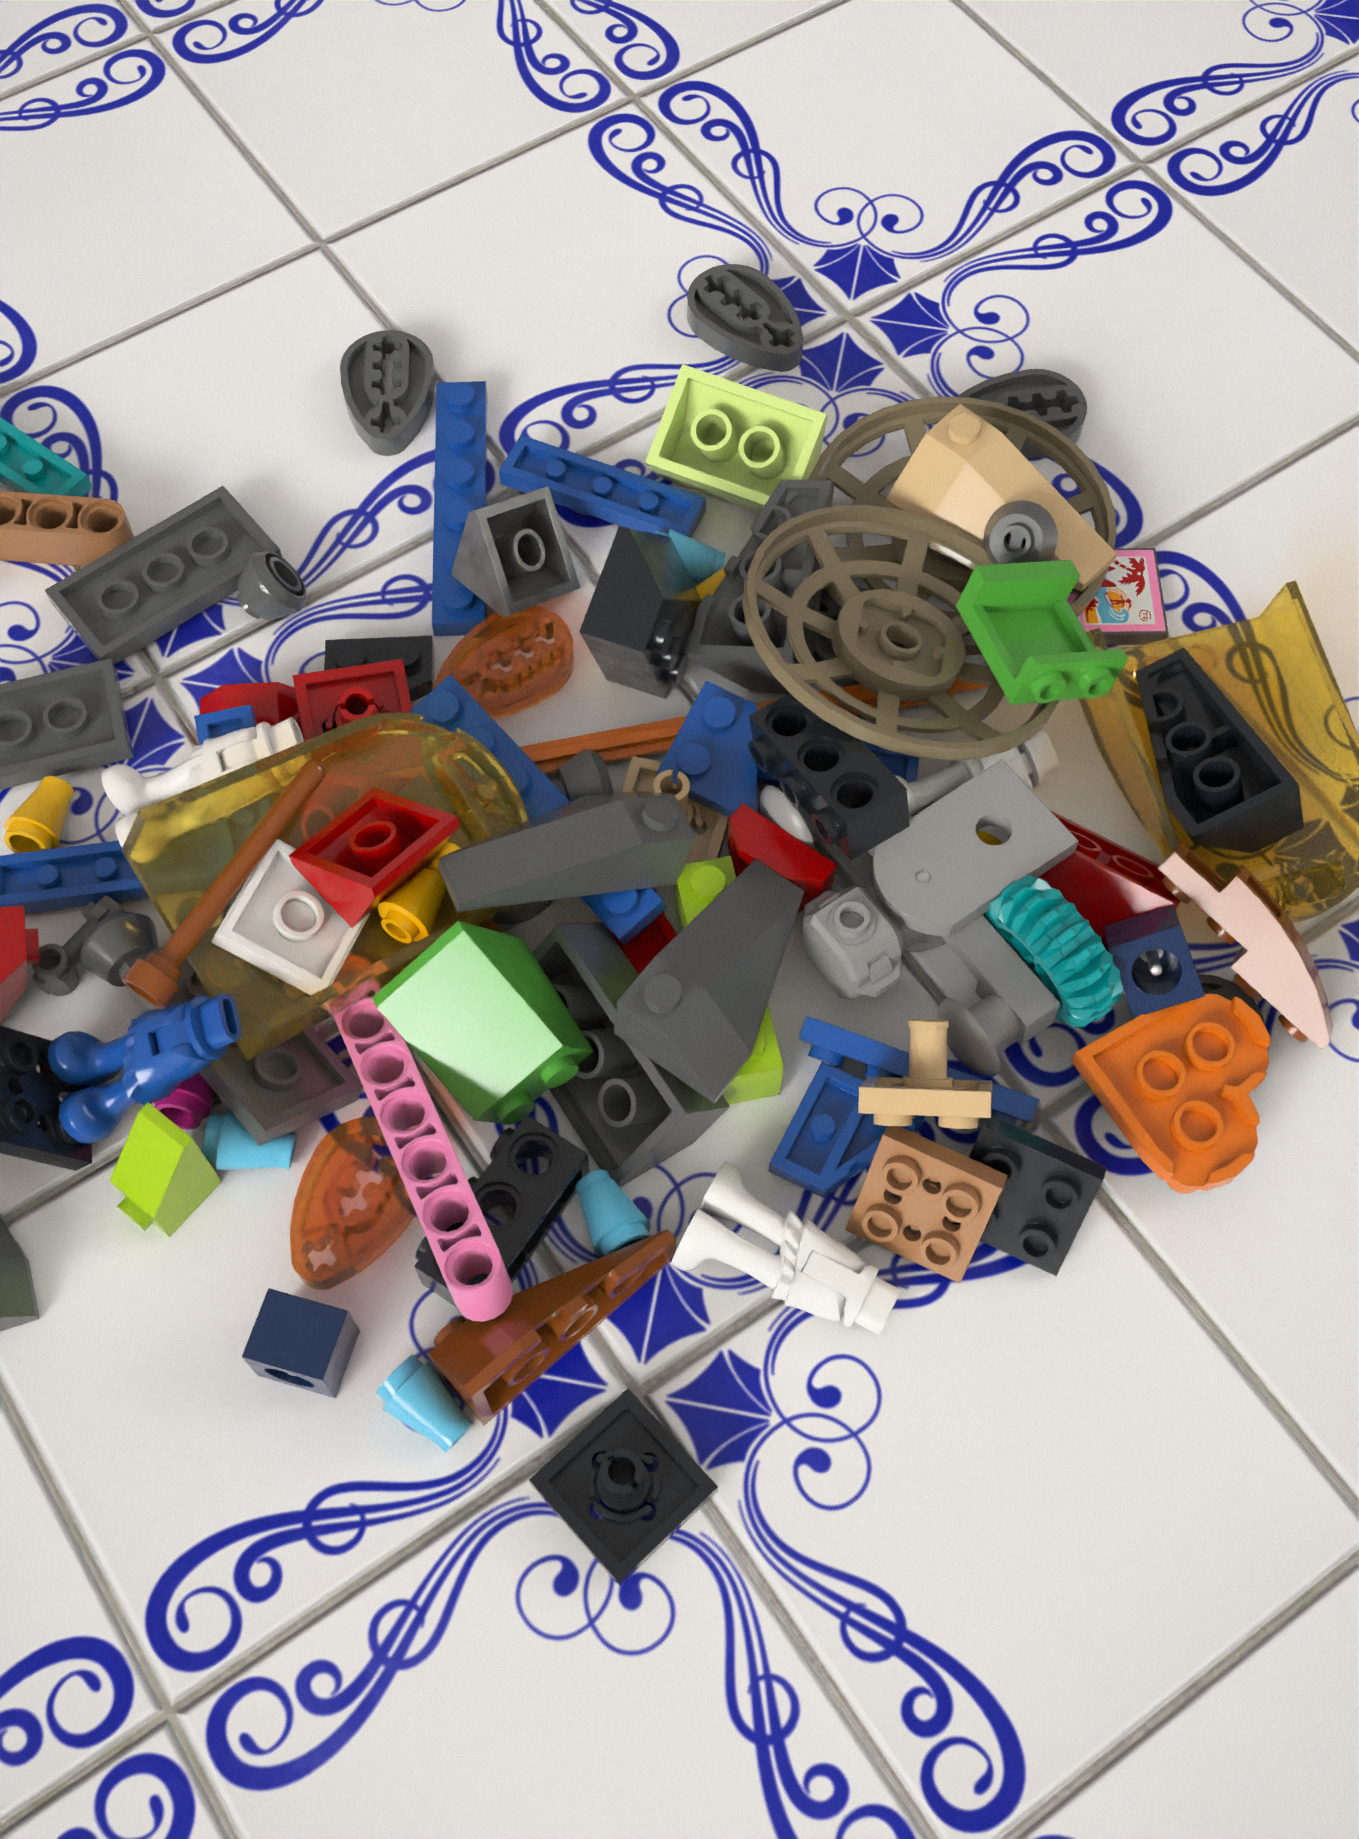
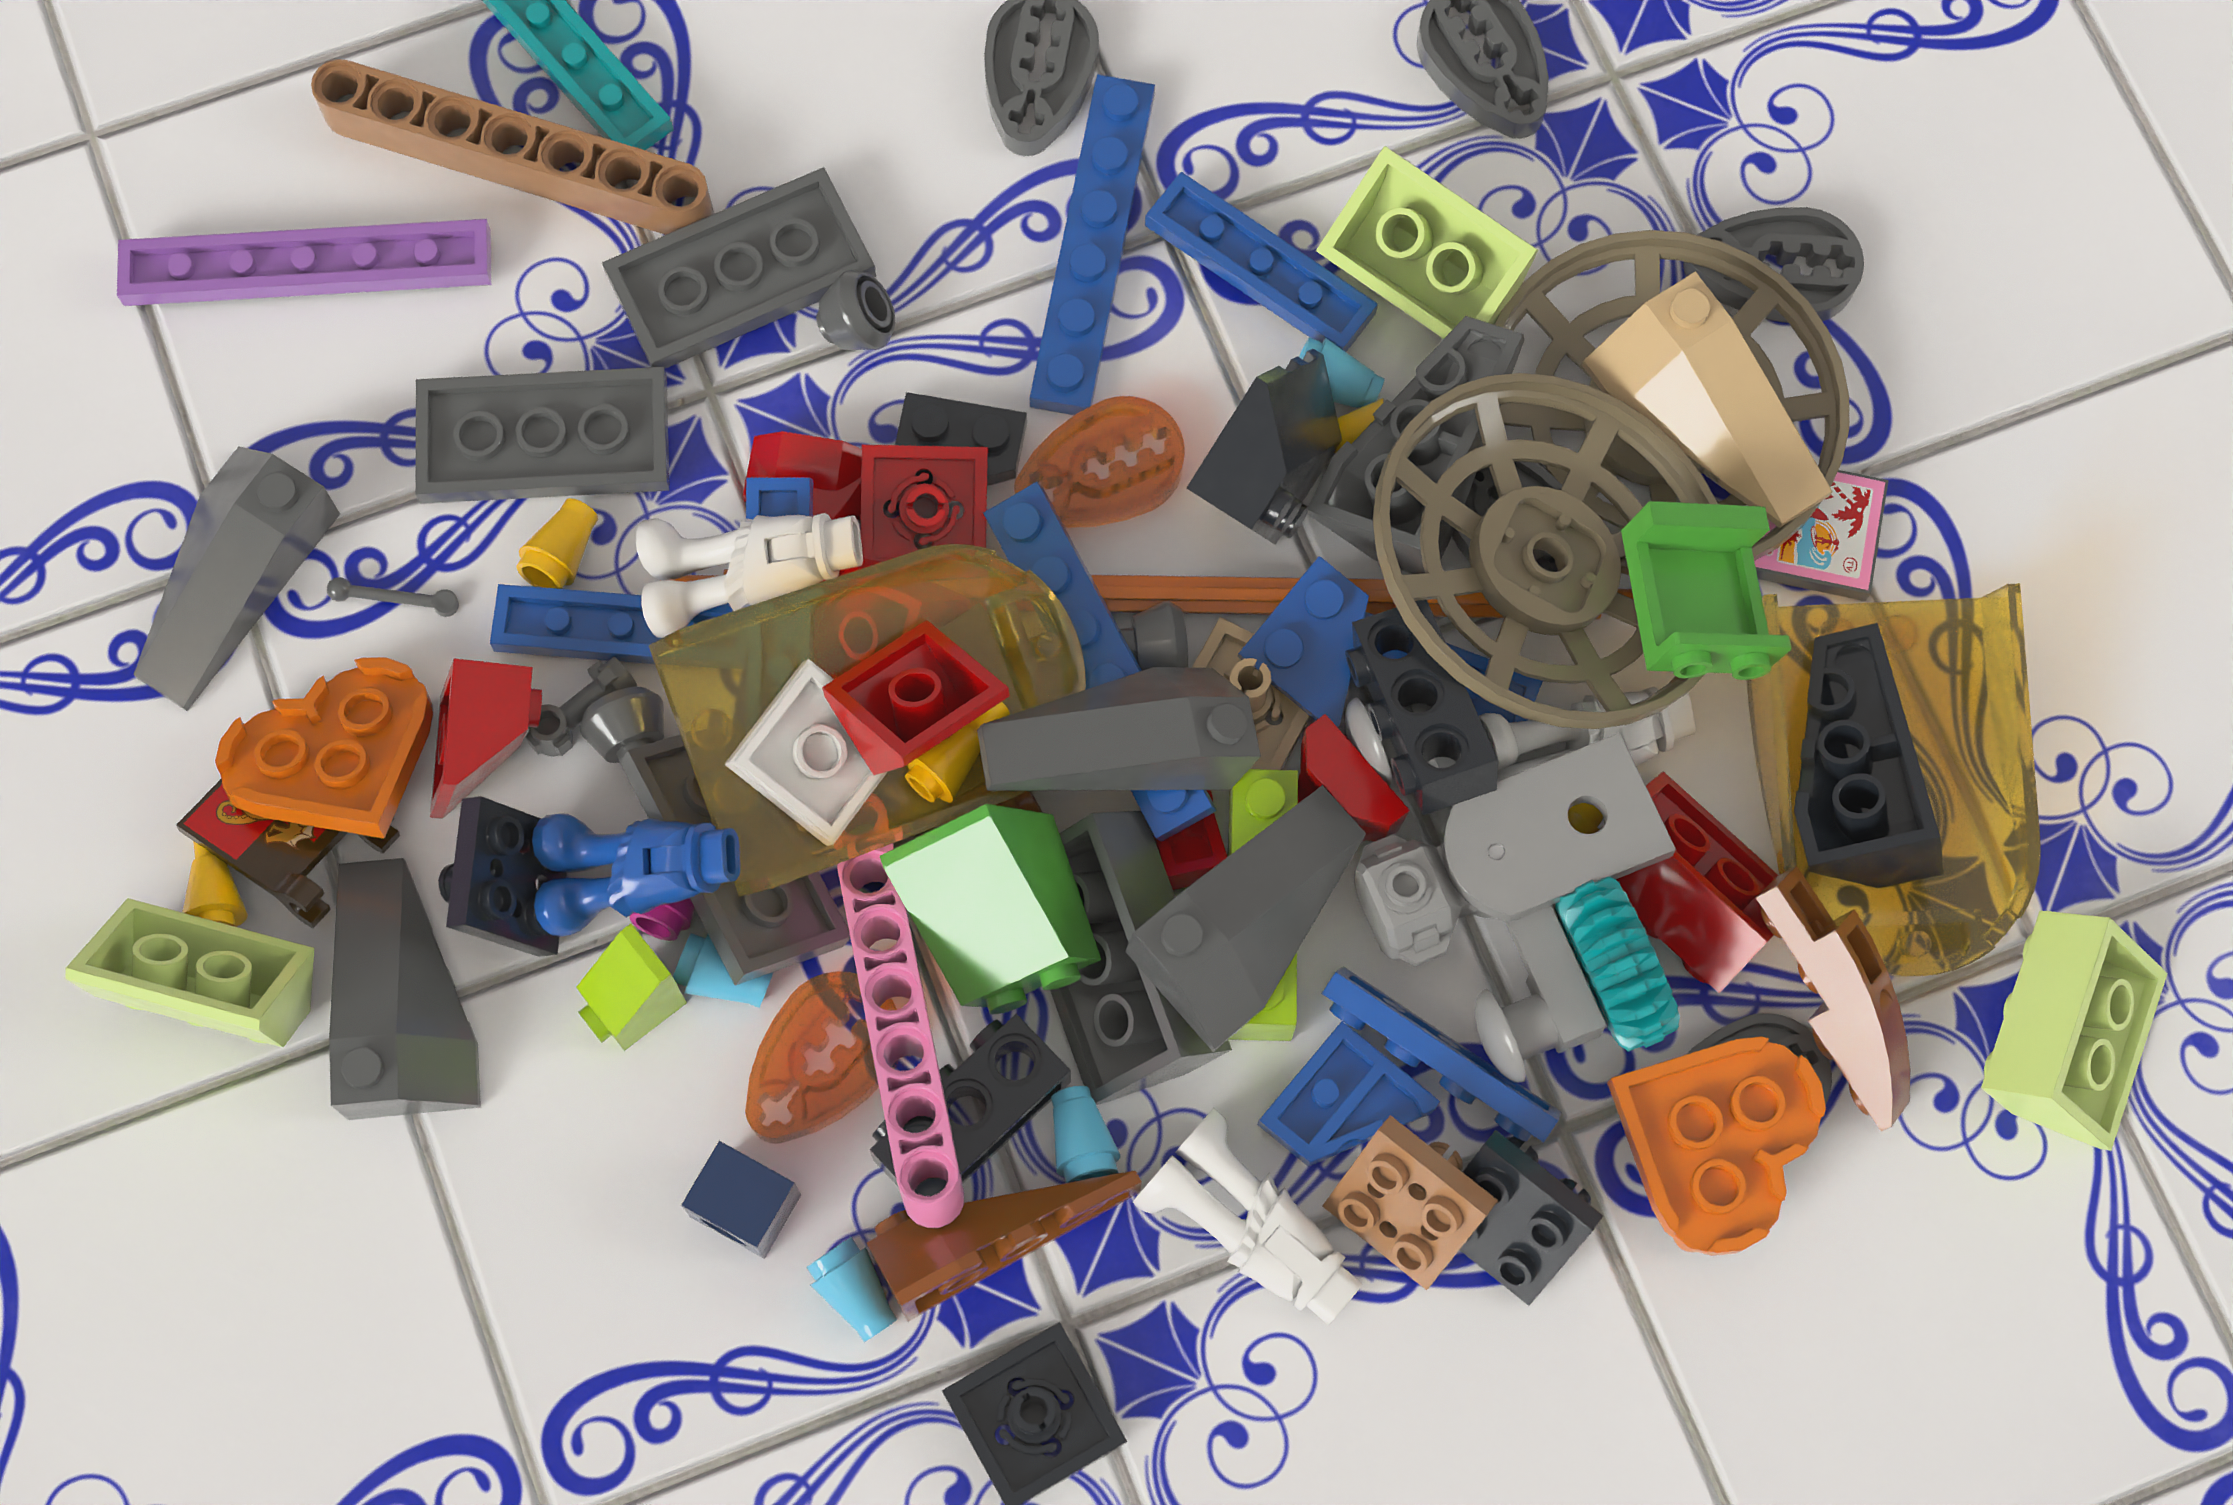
camera: 10 degrees right, 10 degrees up
(157, 974) = (666, 792): dark orange piece -> none
(515, 554) = (1142, 340): flat silver slope -> none
(927, 1087) = (1436, 1091): tan plate -> none
(1020, 520) = (1722, 442): dark grey cone -> none
(1153, 961) = (1723, 997): dark blue piece -> none

